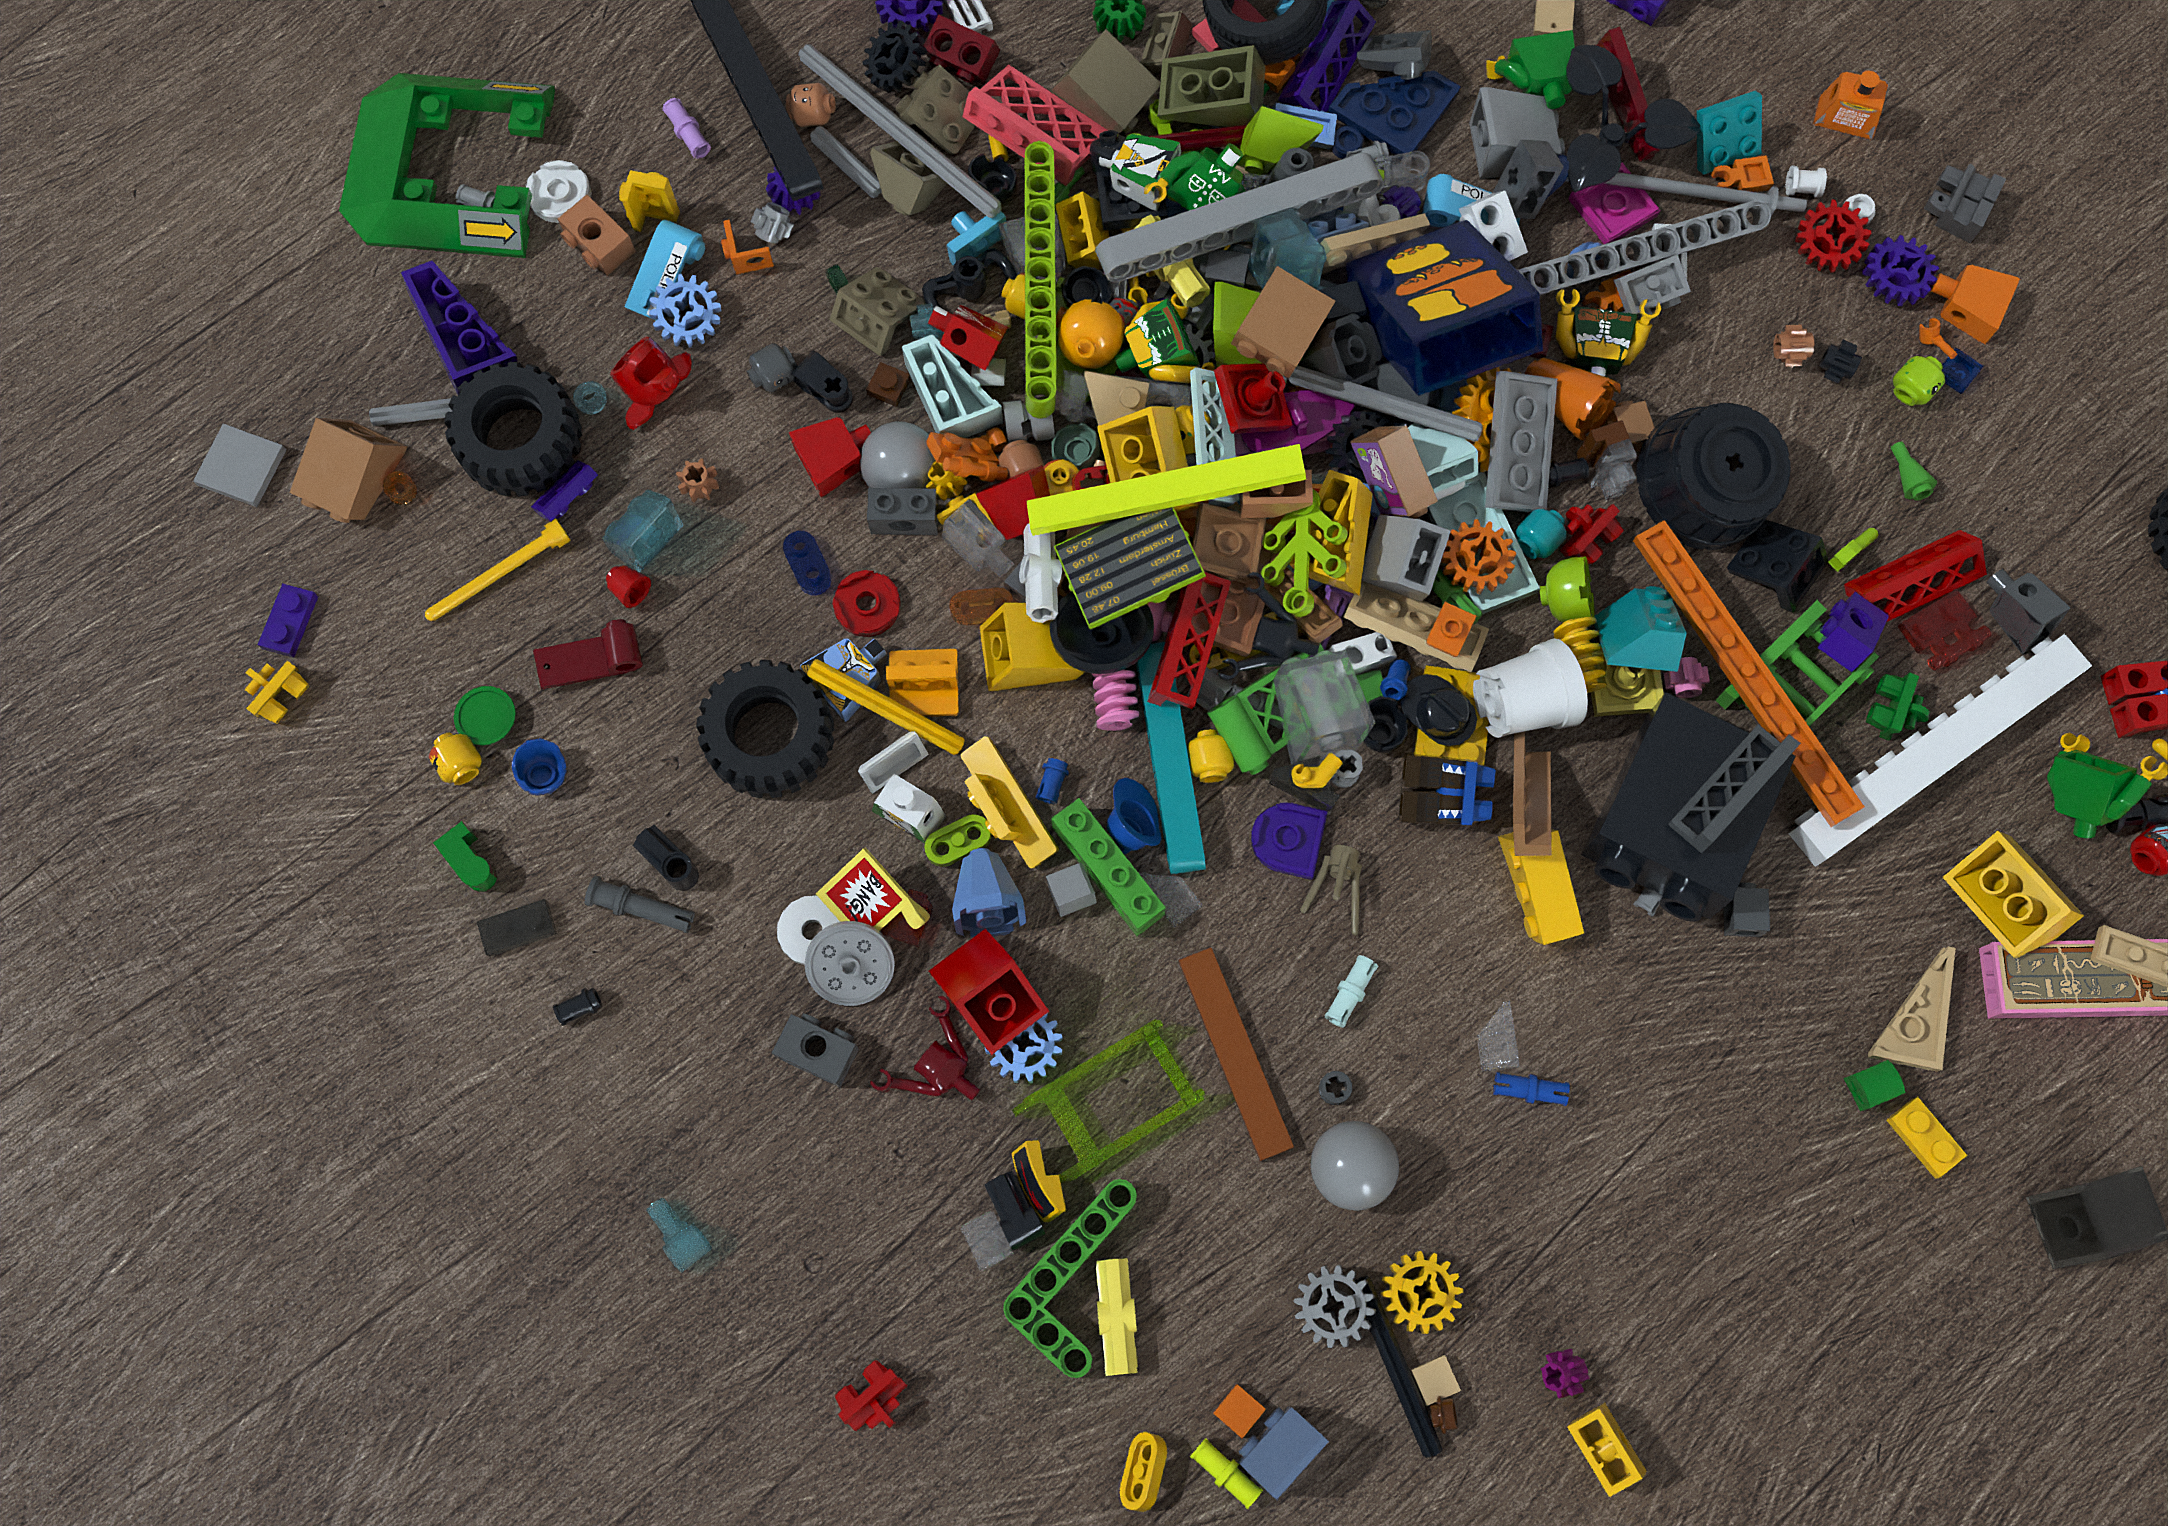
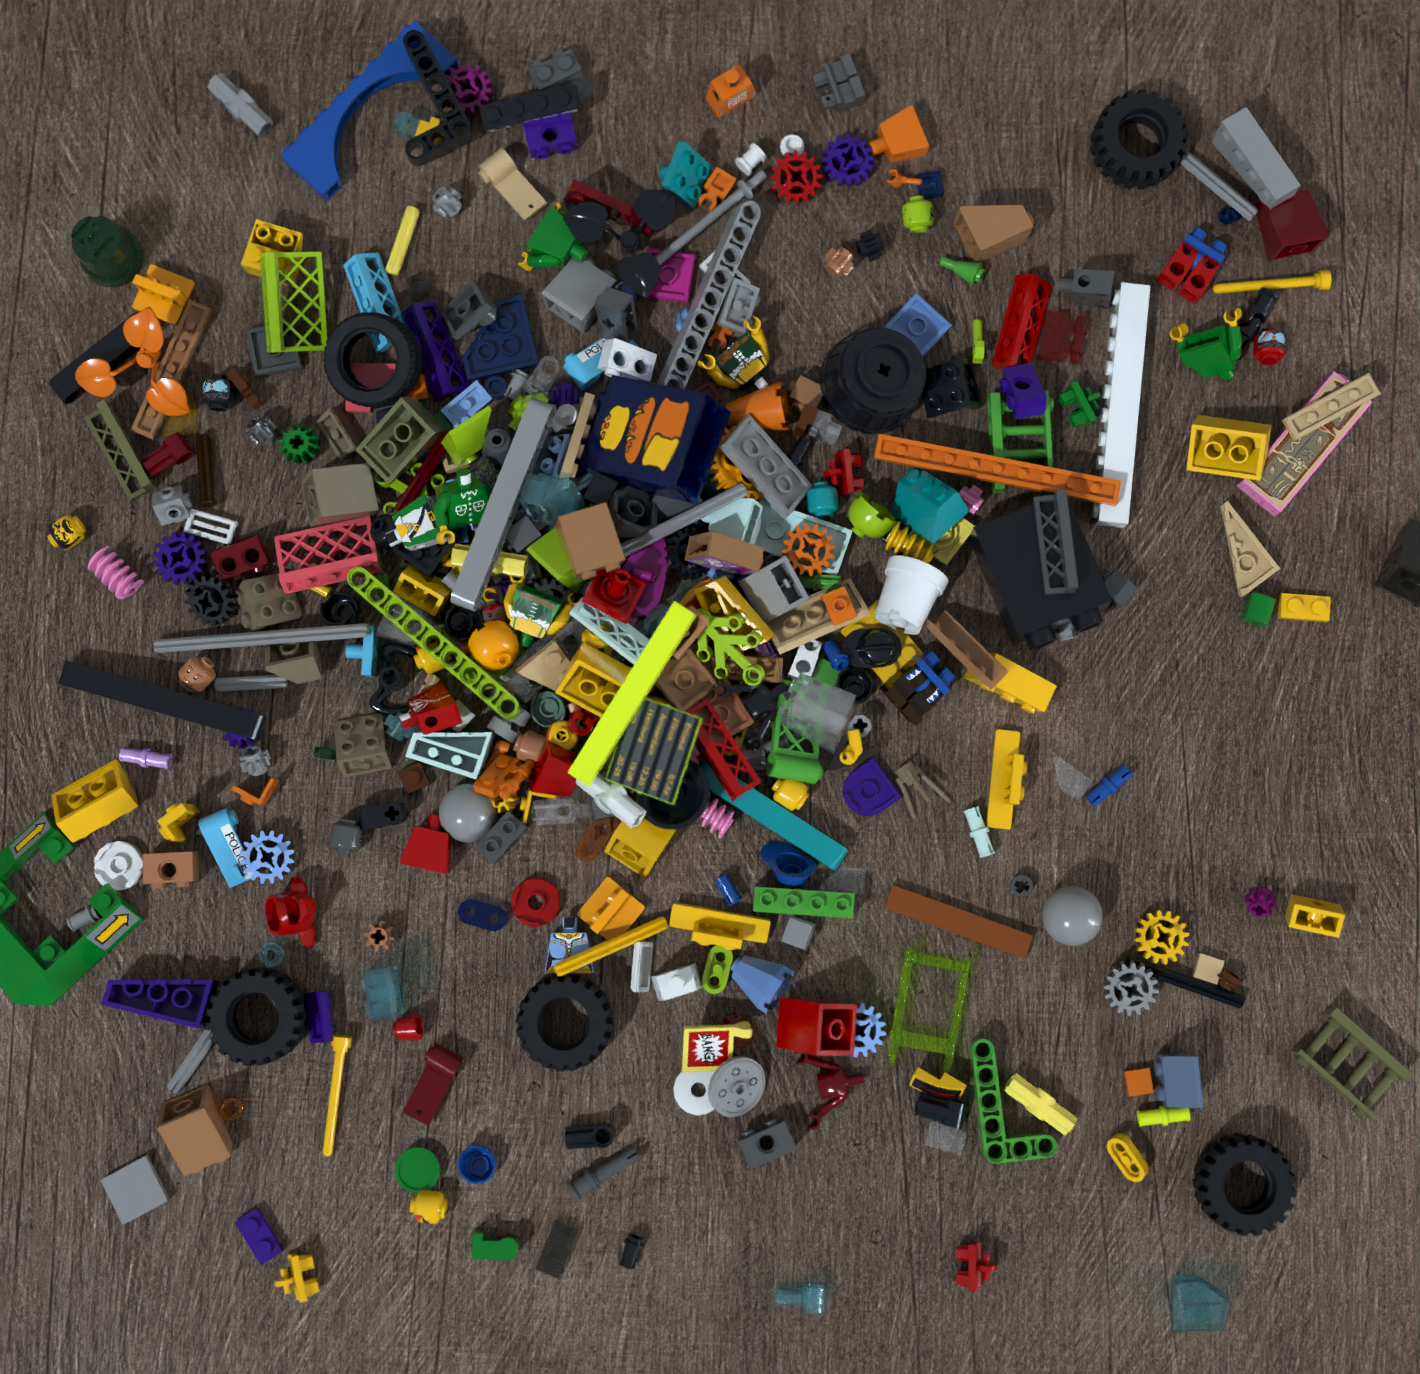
camera: 50 degrees left, 10 degrees up
(600, 117) = (93, 801): none -> yellow slope
(1431, 969) = (1005, 779): none -> yellow bracket
(1814, 479) = (919, 323): none -> medium blue plate
(1983, 460) = (992, 229): none -> medium nougat slope

